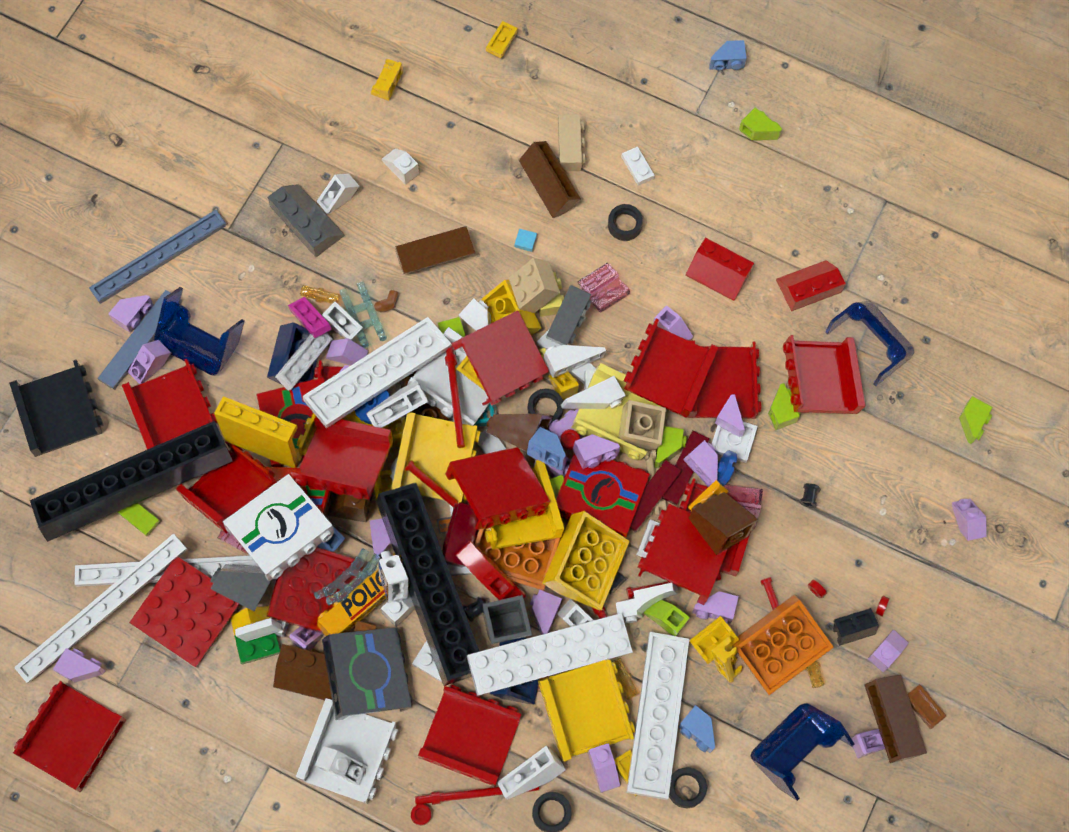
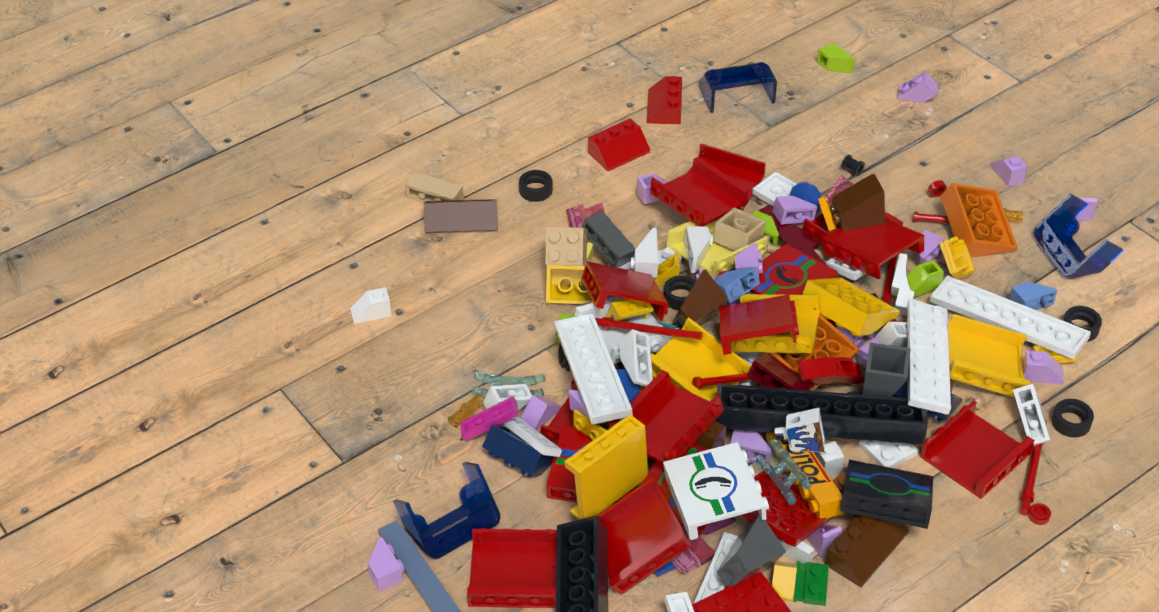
camera: 60 degrees left, 25 degrees down
(148, 361) = (451, 569): lavender slope -> none
(157, 256) = (333, 529): sand blue tile -> none
(258, 629) = (803, 562): white tile -> none
(305, 218) = (378, 397): dark grey slope -> none
(337, 192) = (368, 361): white slope -> none
(340, 765) = (969, 551): white slope -> none
(356, 736) = (957, 547): white panel -> none
(387, 79) = (275, 287): yellow hinge -> none
(387, 304) = (508, 364): dark orange arm -> none
(434, 250) = (478, 312): reddish brown brick -> none
(476, 314) = (566, 302): white slope -> none
(501, 39) = (297, 200): yellow plate -> none
(525, 240) = (507, 253): medium azure tile -> none
(637, 166) = (486, 162): white plate -> none
(724, 659) = (981, 254): yellow hinge -> none
(729, 56) = (427, 73): medium blue slope -> none
(730, 417) = (761, 178): lavender slope -> none
(759, 126) = (504, 80): lime slope -> none
(782, 410) = (767, 152): lime slope -> none
(824, 376) = (754, 117): red panel -> none
(855, 626) = (980, 173): black hinge -> none
(882, 606) = (969, 158): red tile -> none
(895, 718) = (1063, 183): reddish brown brick -> none
(925, 707) = (1063, 168): dark orange tile -> none

